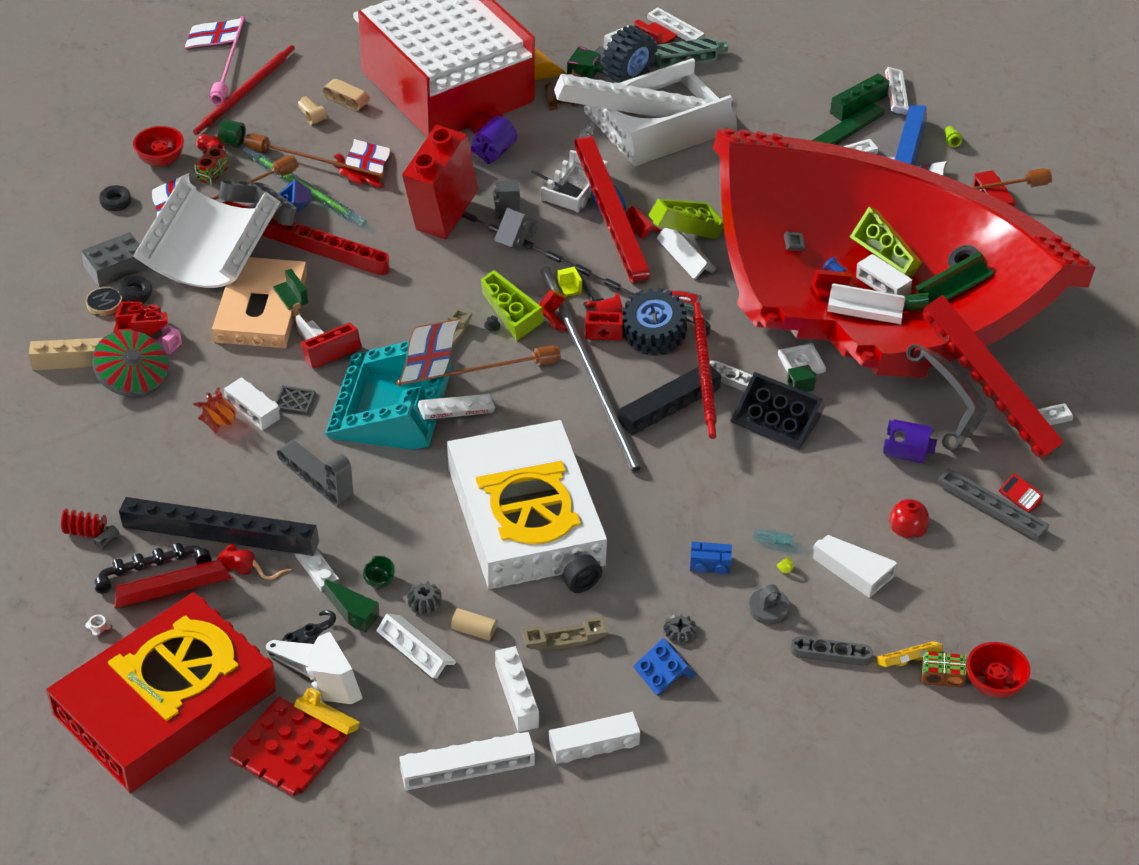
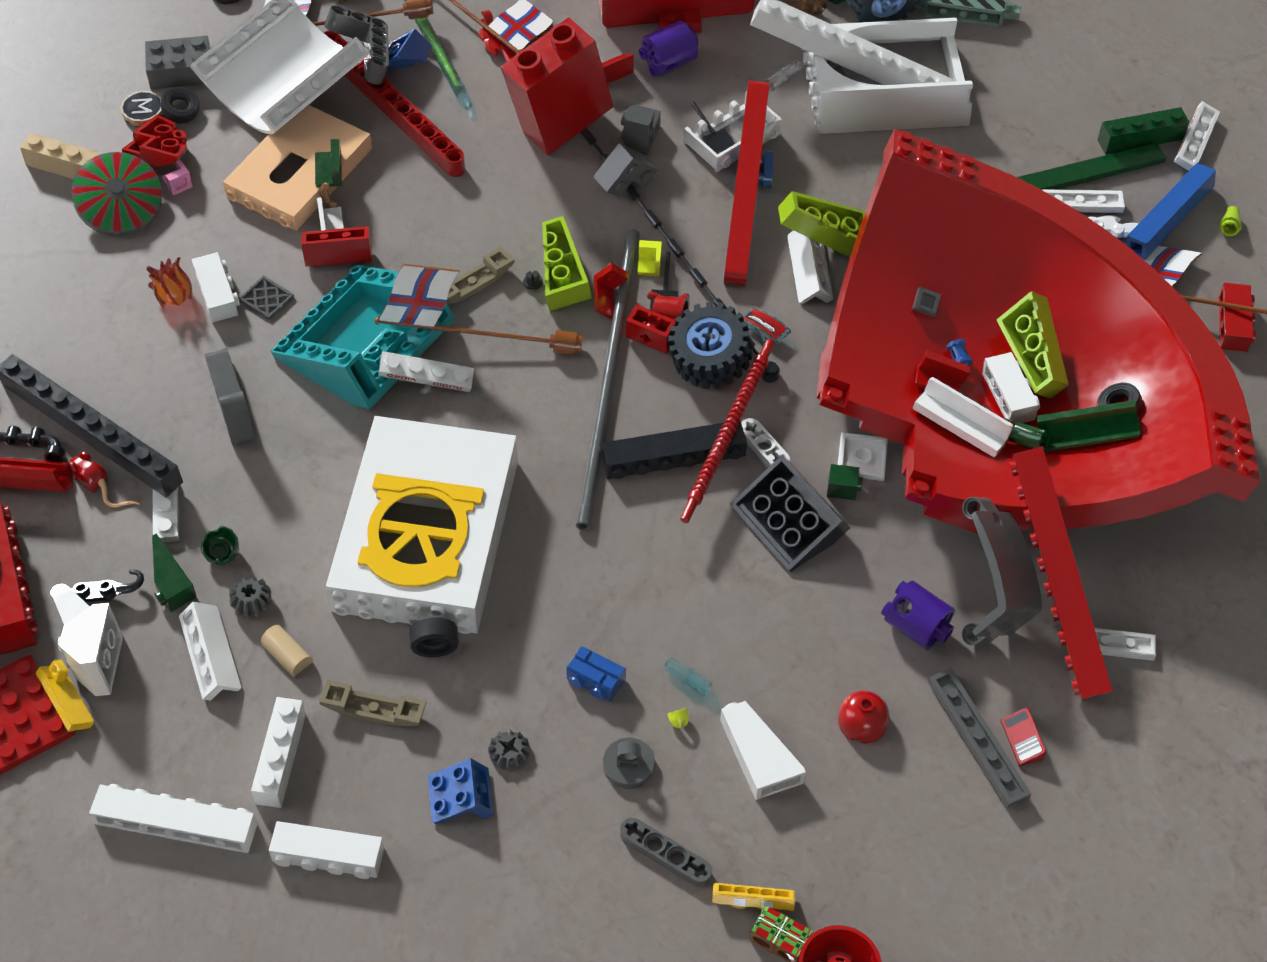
camera: 25 degrees right, 10 degrees up
(640, 222) = (770, 203): red panel -> none

